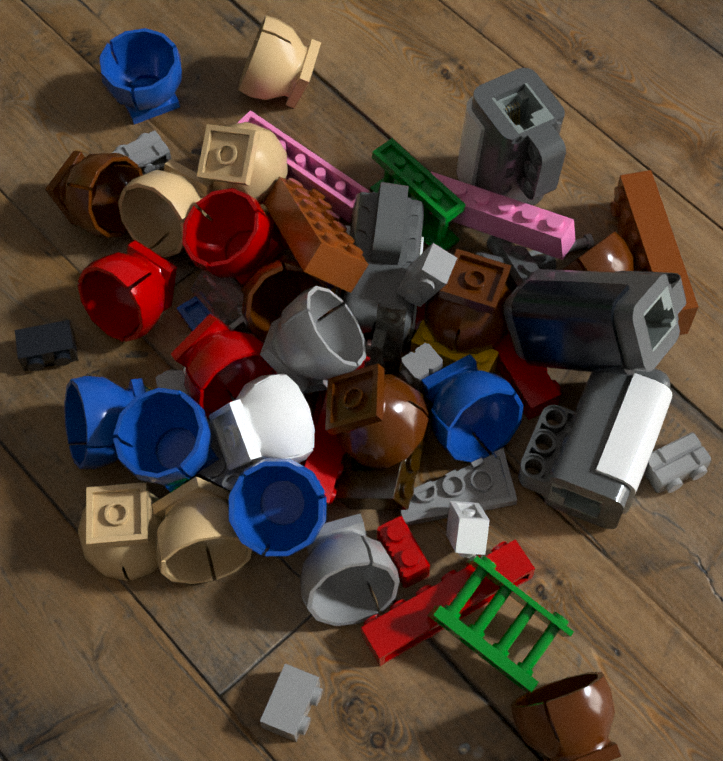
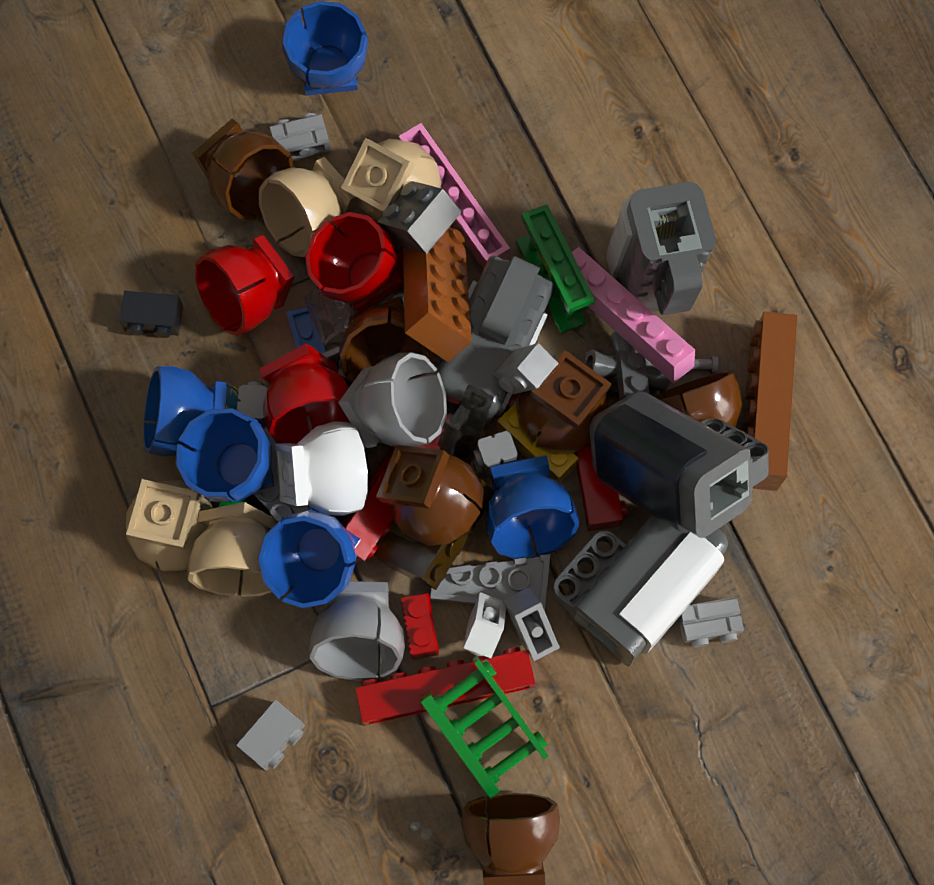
camera: 15 degrees right, 10 degrees up
(278, 63) = (466, 77): tan plate -> none
(280, 176) = (419, 216): none -> dark grey brick
(510, 513) = (531, 623): none -> light grey brick

